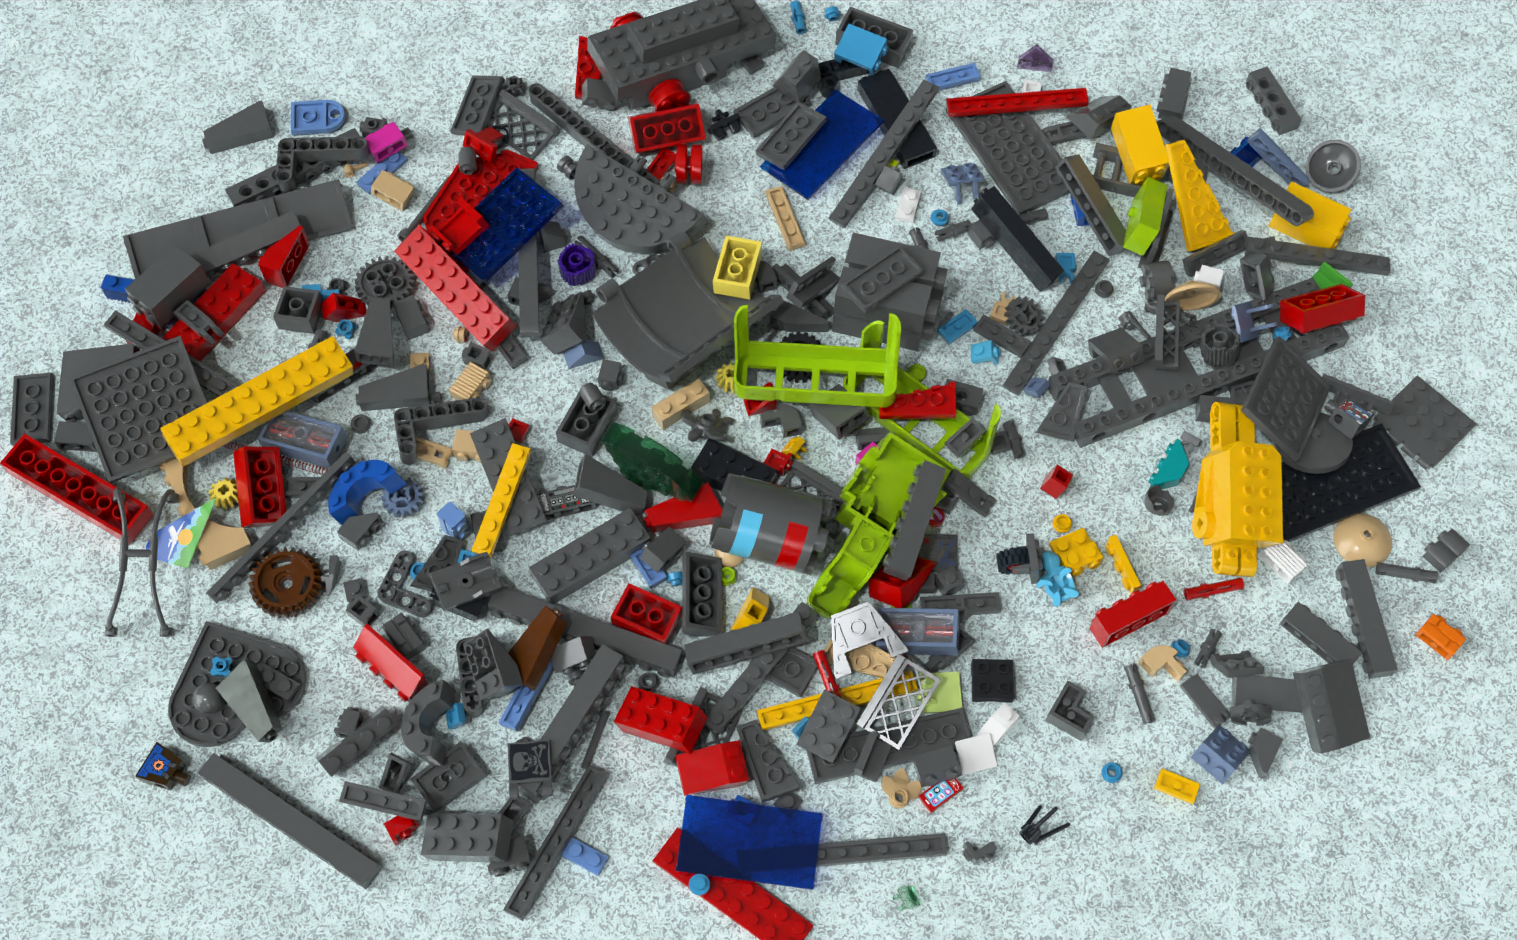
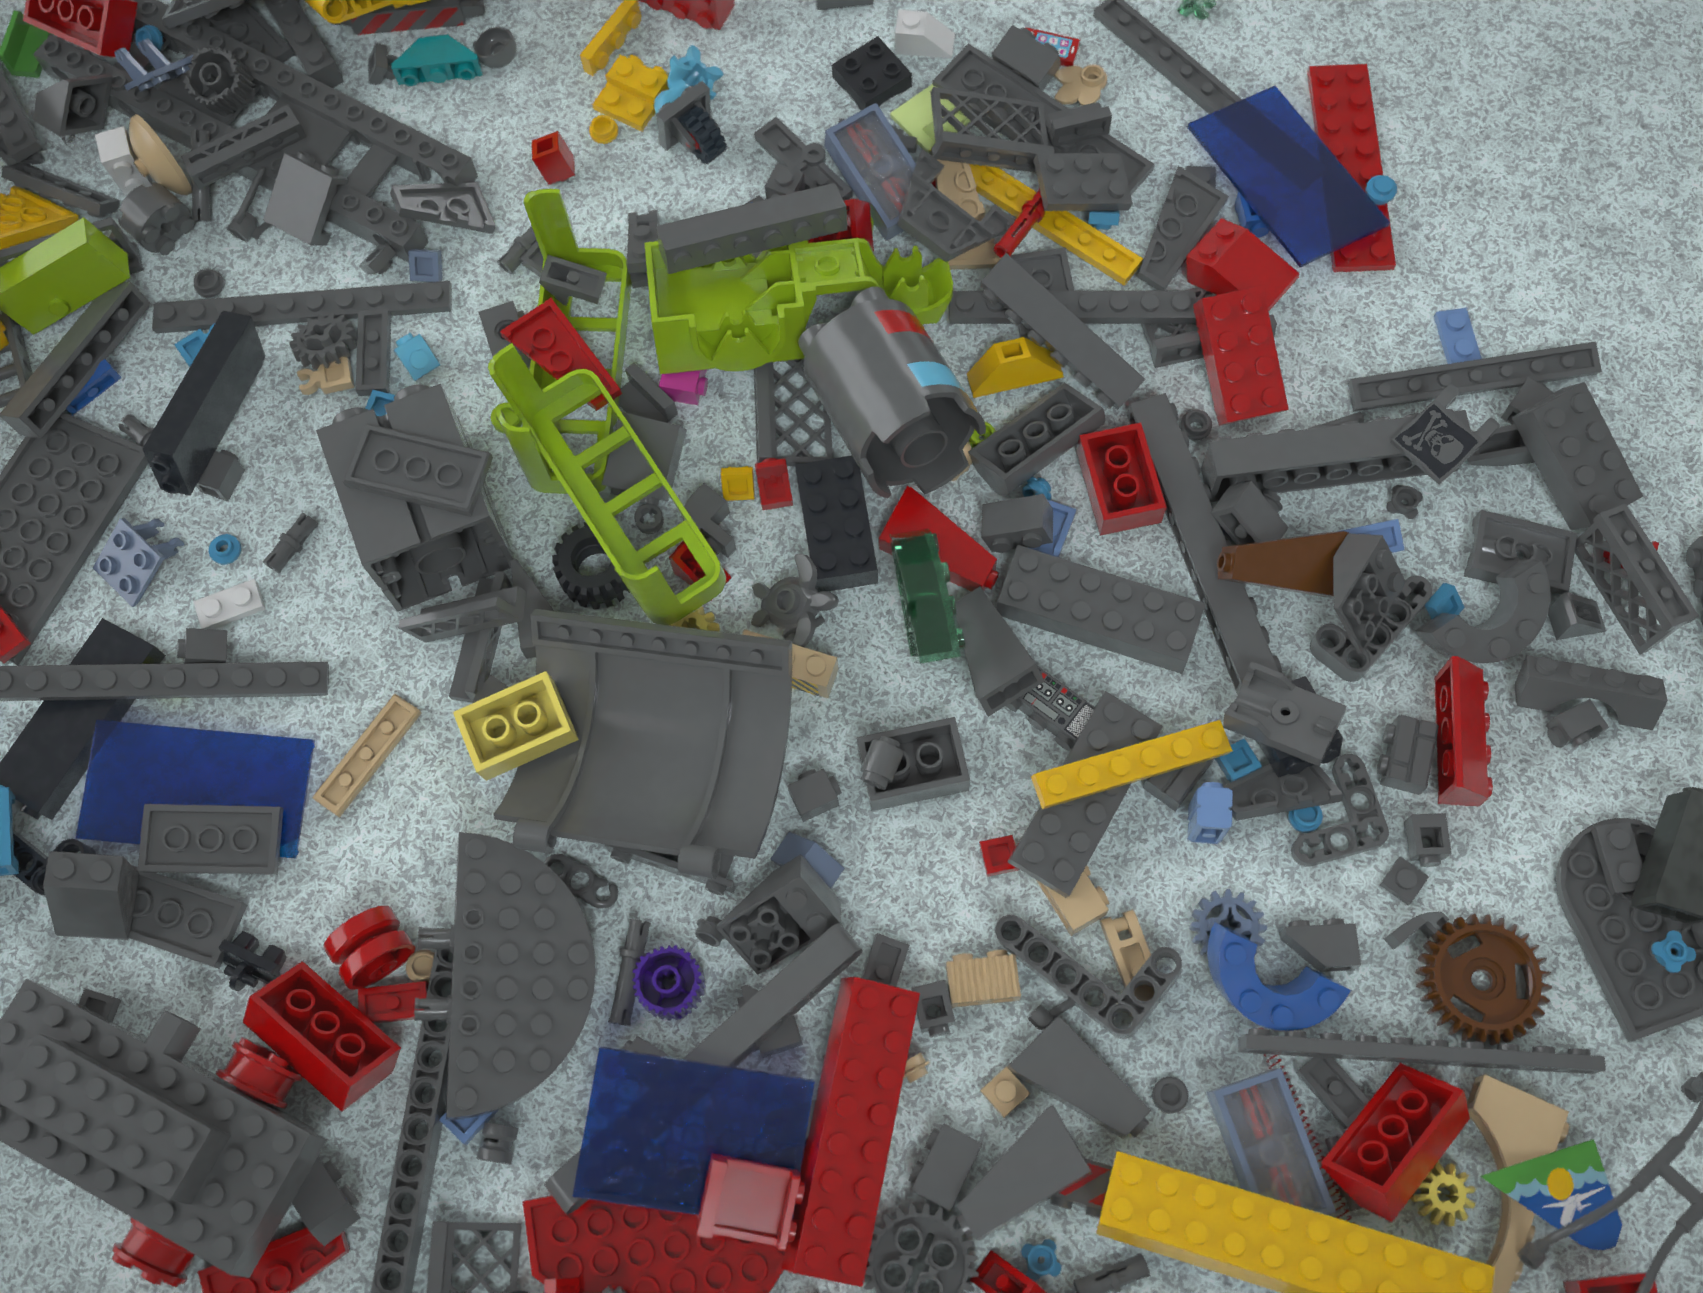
camera: 120 degrees left, 5 degrees up
(953, 230) = (235, 517): dark grey pin -> none
(976, 753) = (973, 37): white sticker -> none

